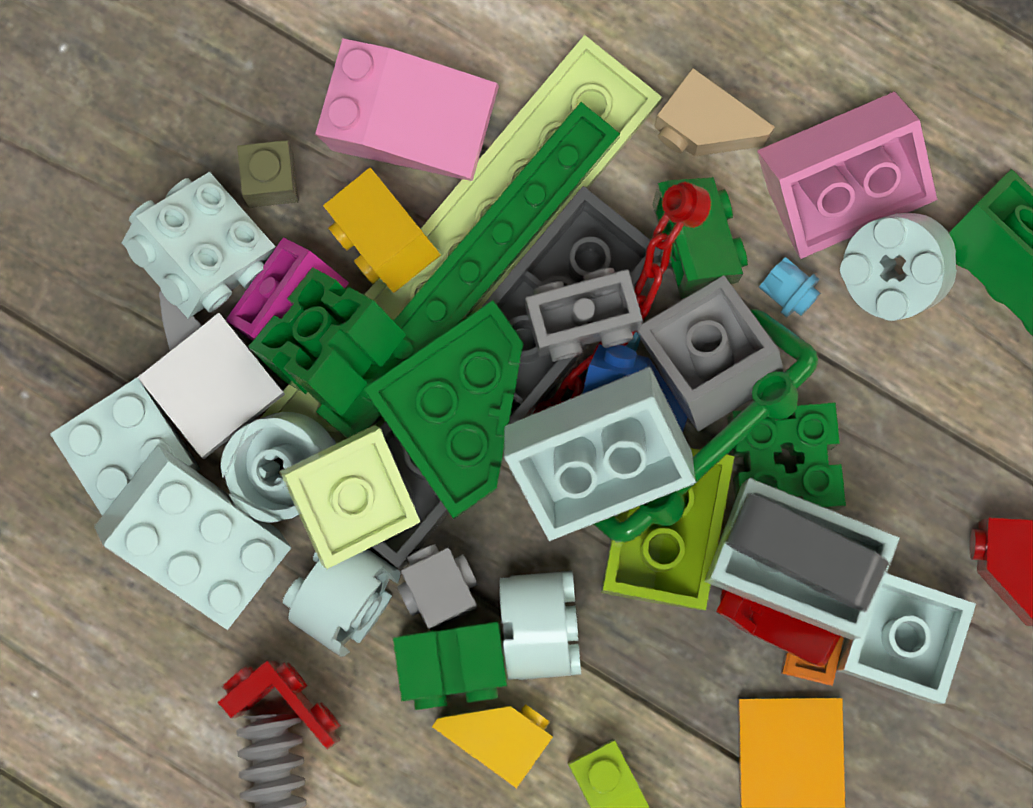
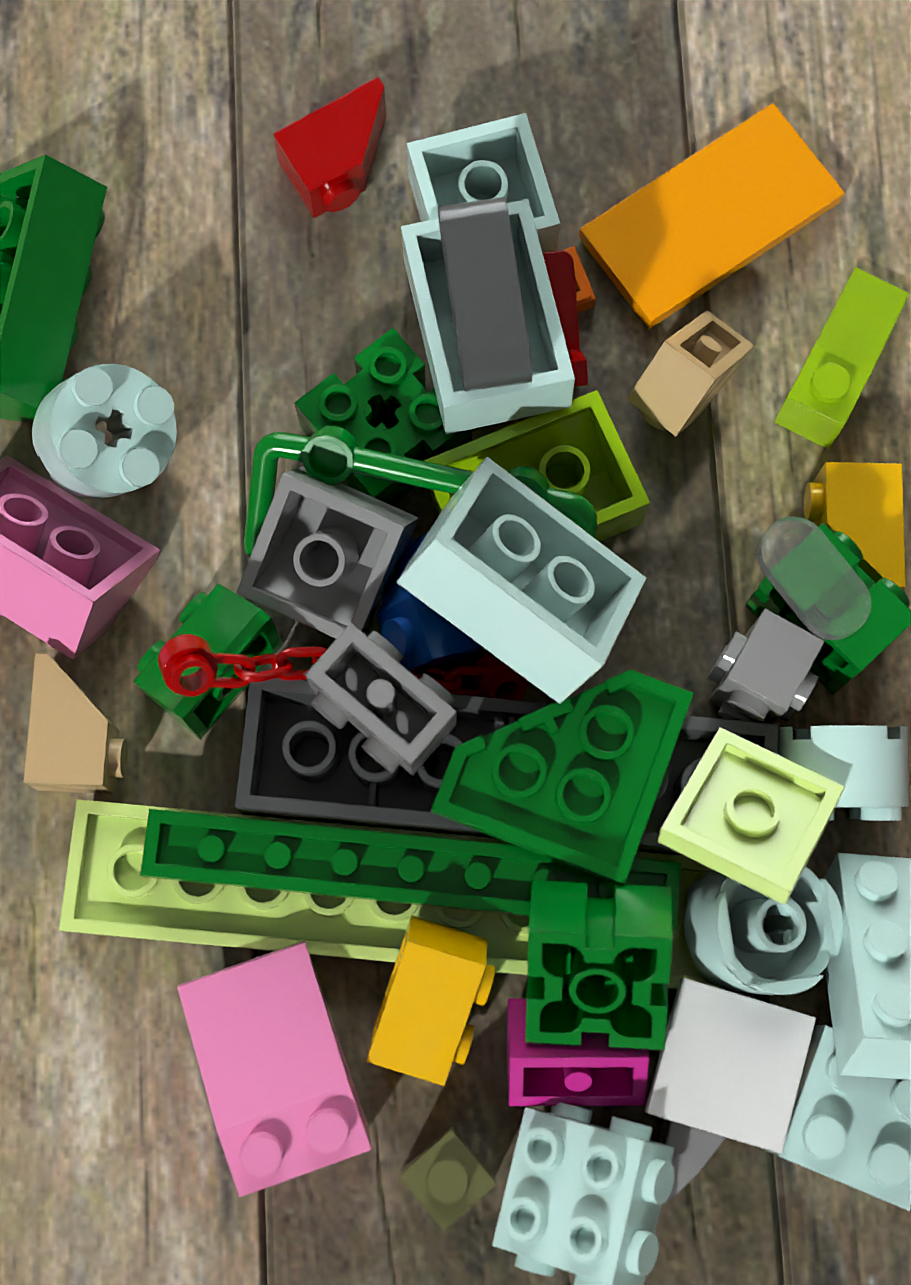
camera: 125 degrees left, 5 degrees down
(472, 648) = (814, 578): none -> clear tile
(539, 625) = (718, 549): light aqua brick -> none
(683, 700) = (688, 373): none -> tan slope
(791, 288) = (199, 534): medium azure hose -> none

